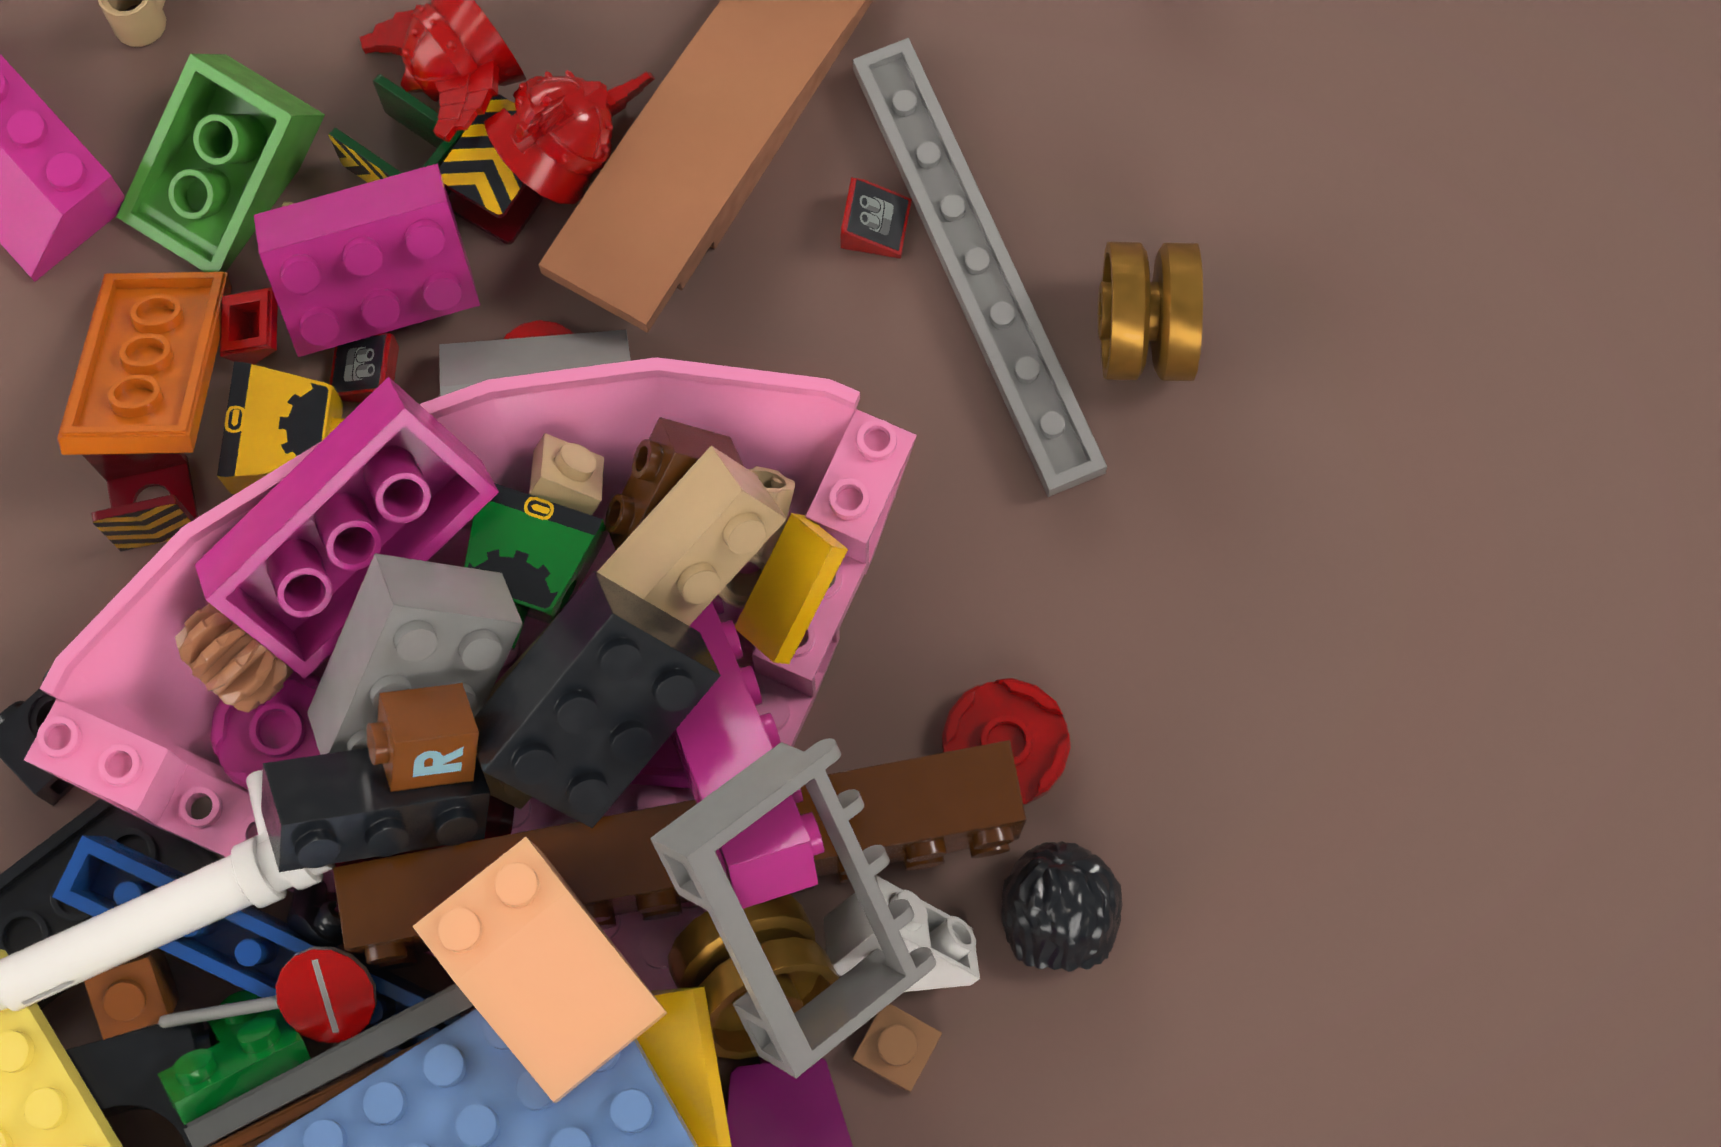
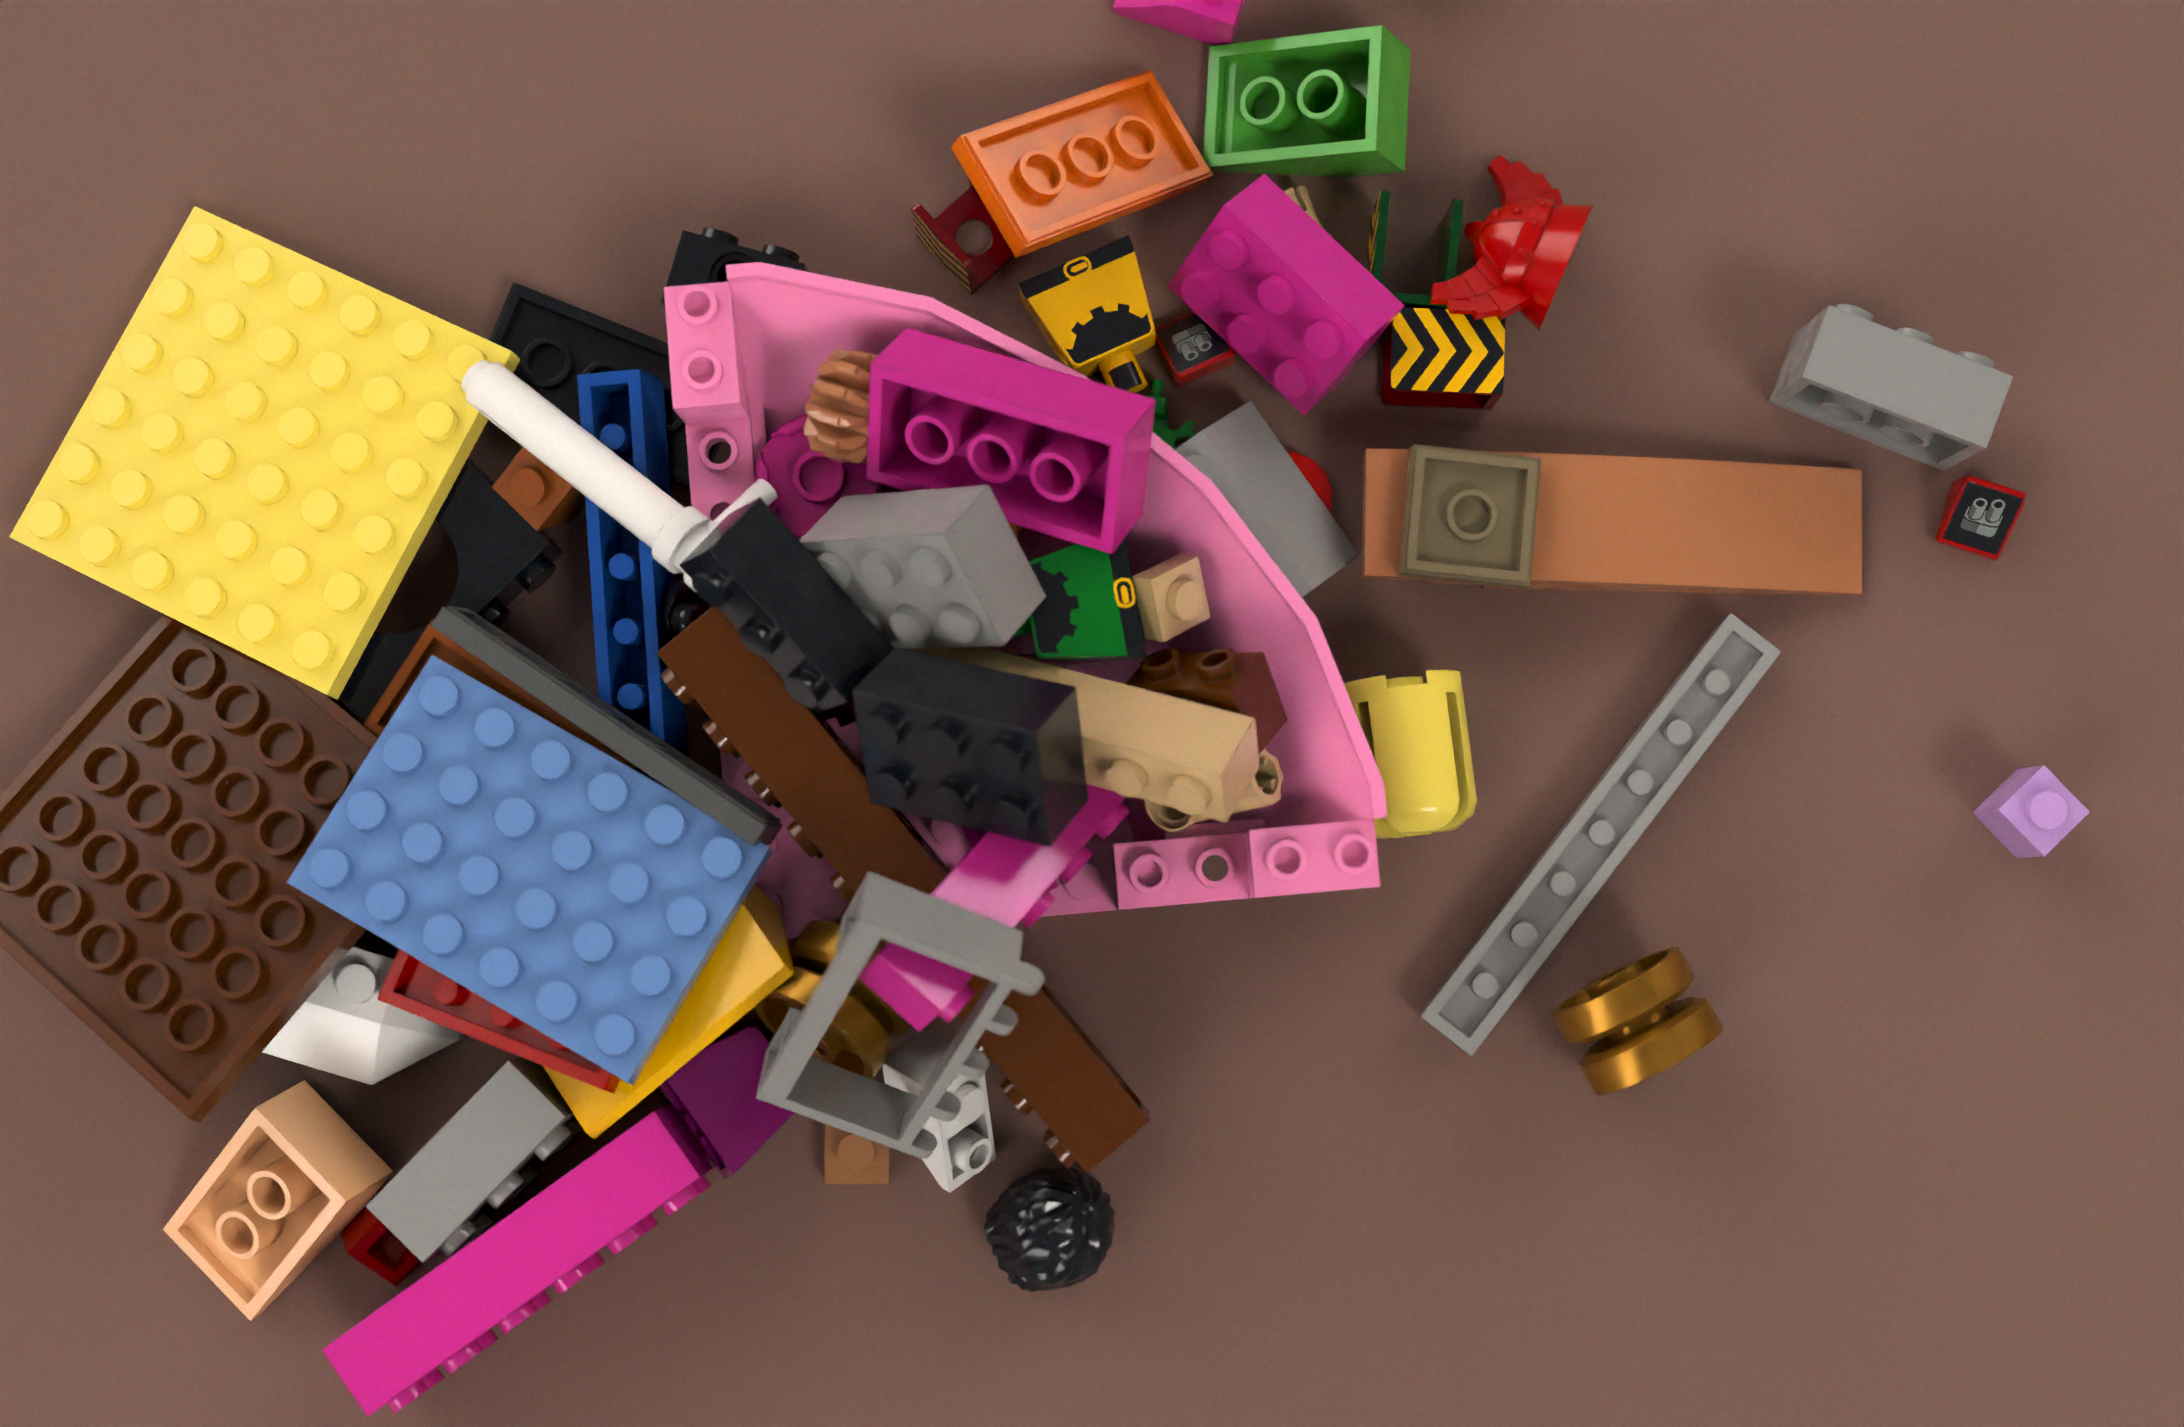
camera: 60 degrees right, 10 degrees up
(246, 1055) = (541, 618): green plate -> none
(249, 326) = (1170, 225): red slope -> none
(318, 991) = (616, 643): red piece -> none
(424, 737) = (858, 620): dark orange brick -> none
(540, 969) = (722, 832): light nougat slope -> none
(560, 131) = (1499, 392): red helmet -> none
(647, 211) = (1469, 516): none -> dark tan tile
(790, 588) = (1180, 851): yellow tile -> none
(828, 346) = (1420, 750): none -> light yellow cylinder
(874, 219) = (1590, 717): slope -> none
(1019, 714) = (1187, 1098): red tile -> none

